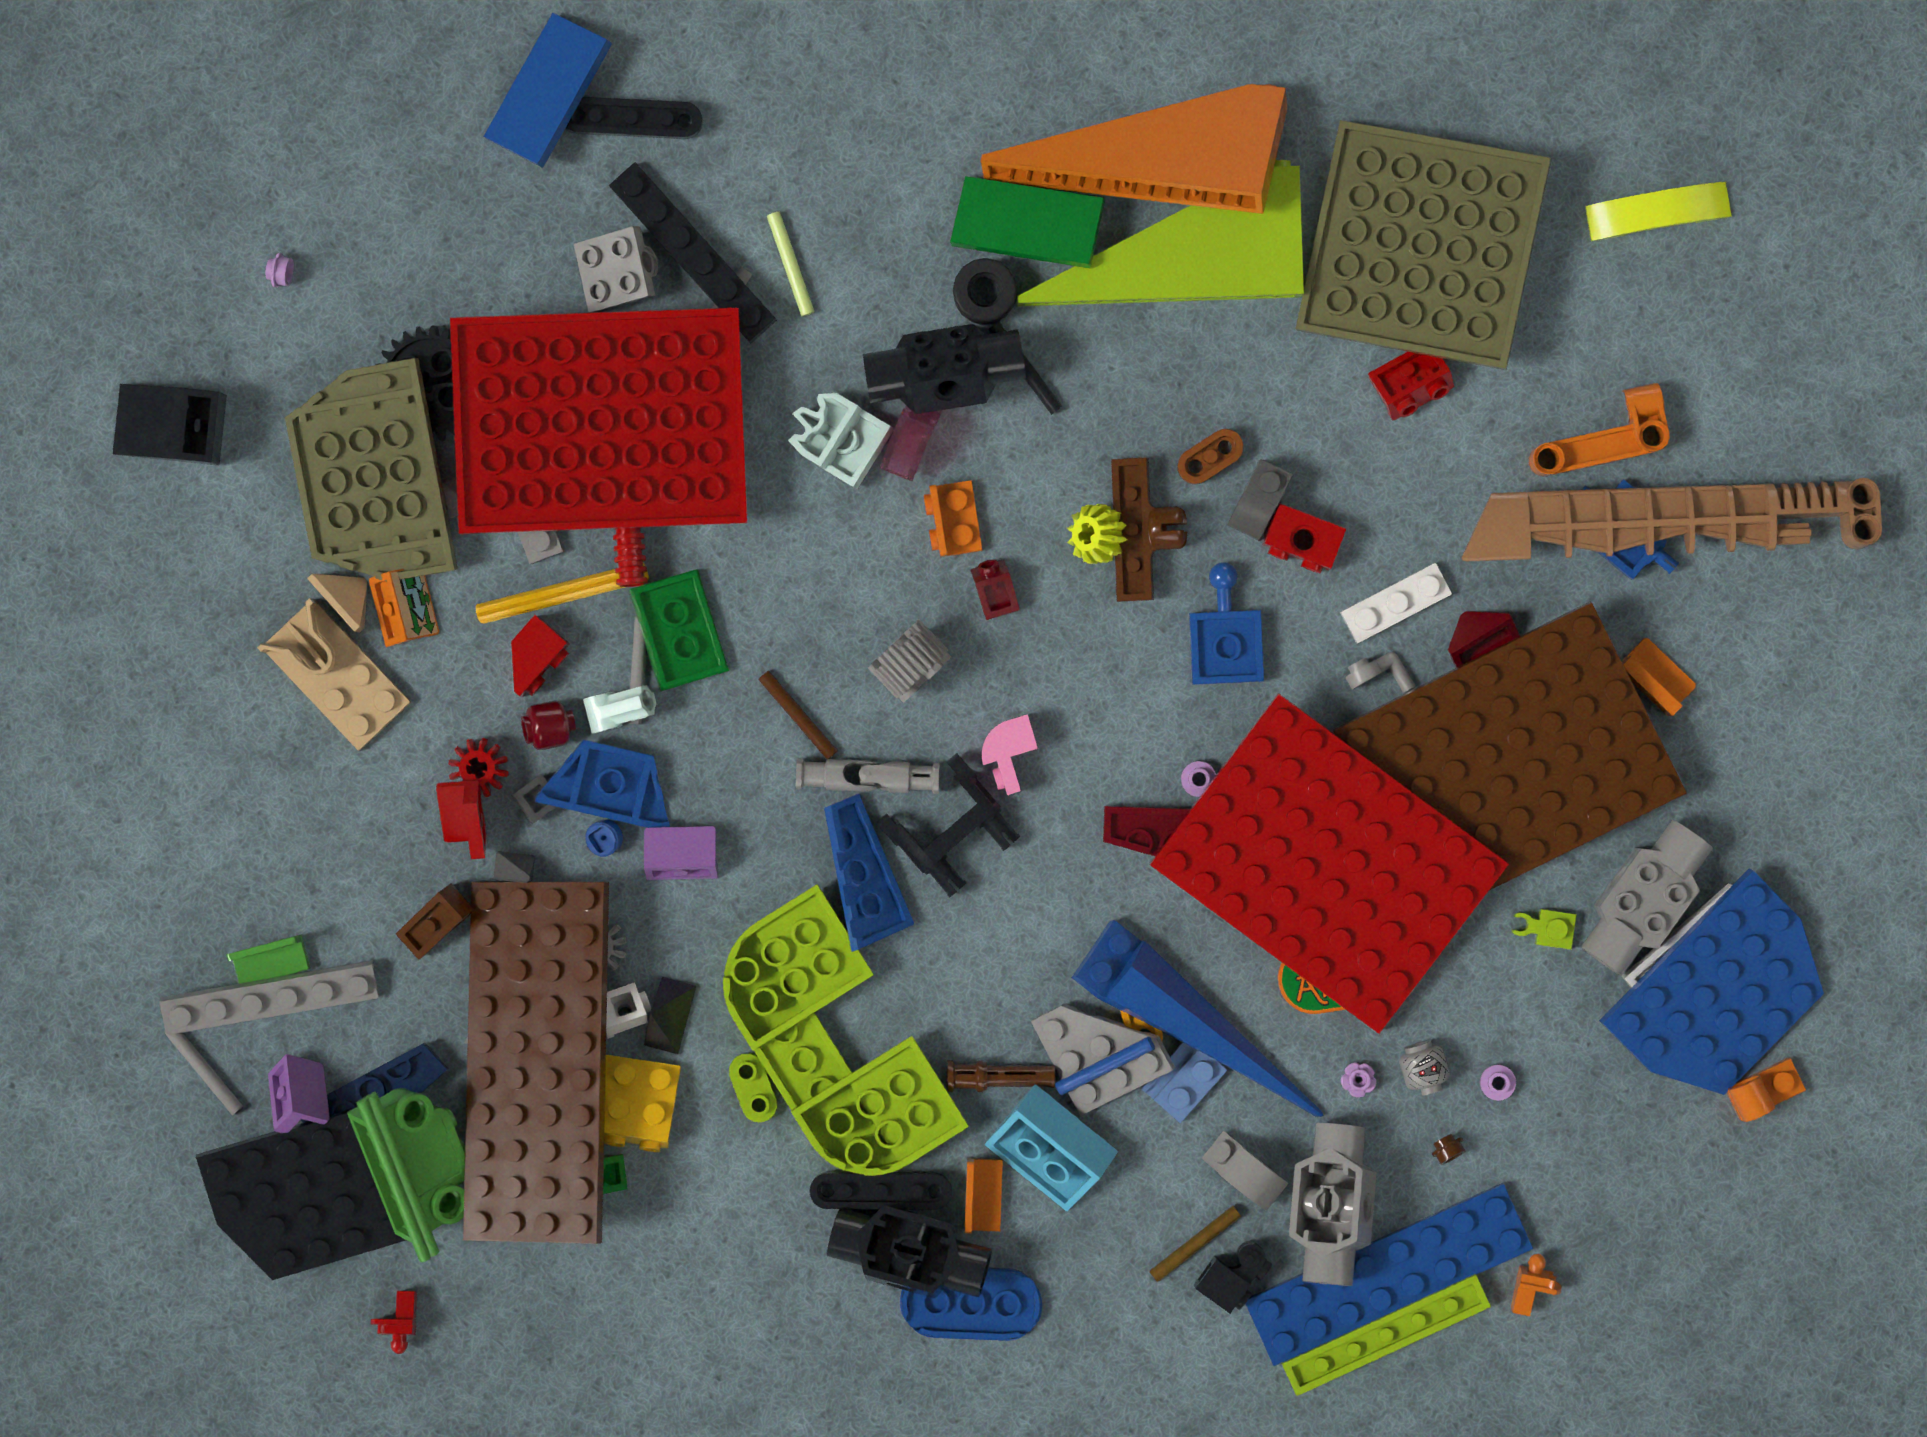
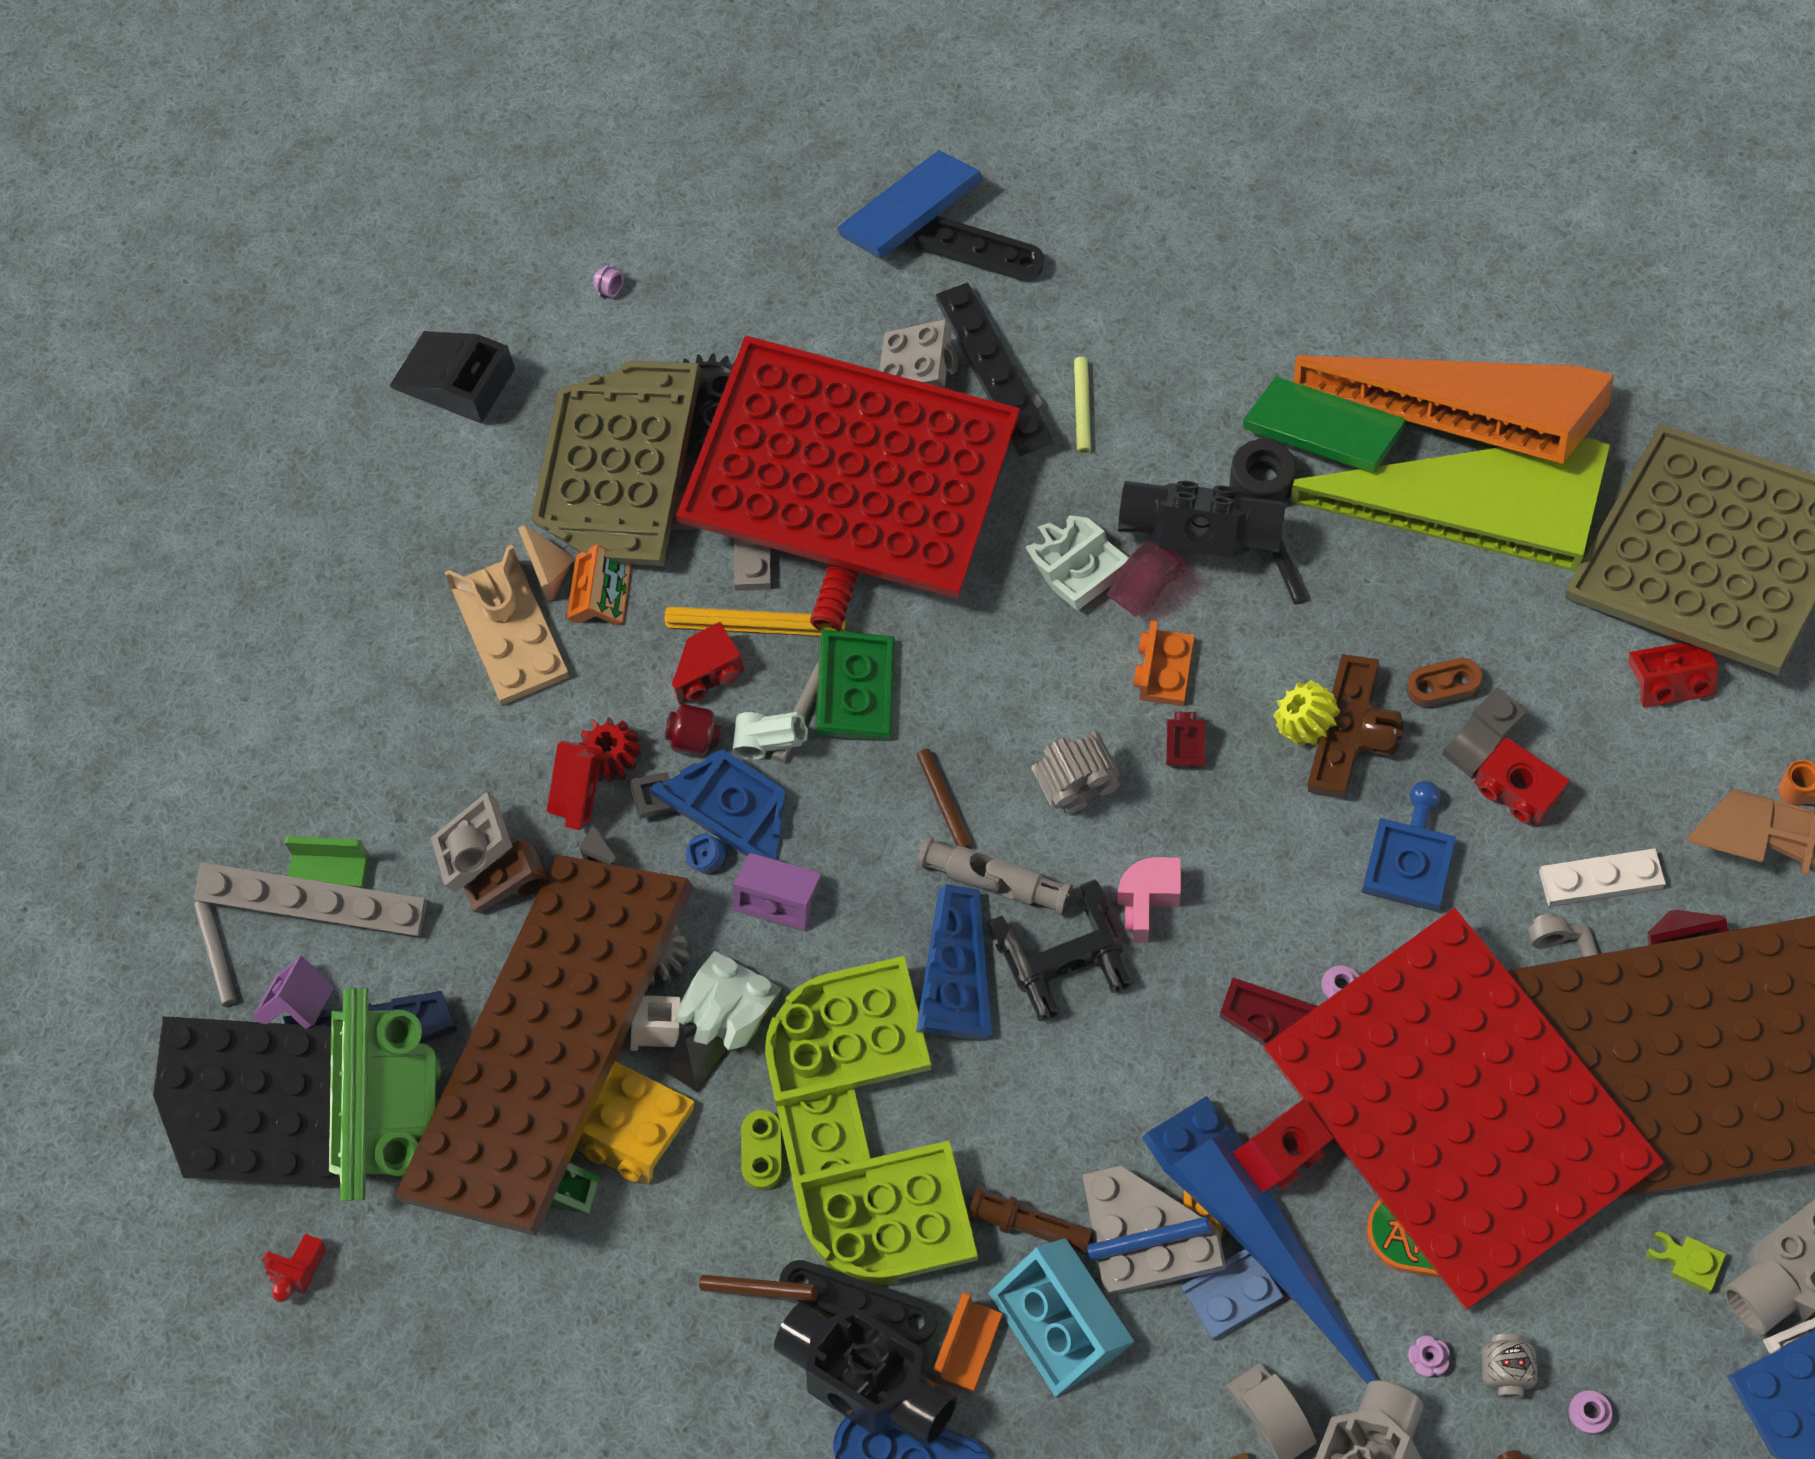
camera: 25 degrees right, 25 degrees down
(393, 902) = (471, 842): none -> light grey plate
(676, 973) = (726, 1002): none -> light aqua plate
(795, 1209) = (758, 1287): none -> reddish brown bar
(1176, 958) = (1265, 1153): none -> red brick

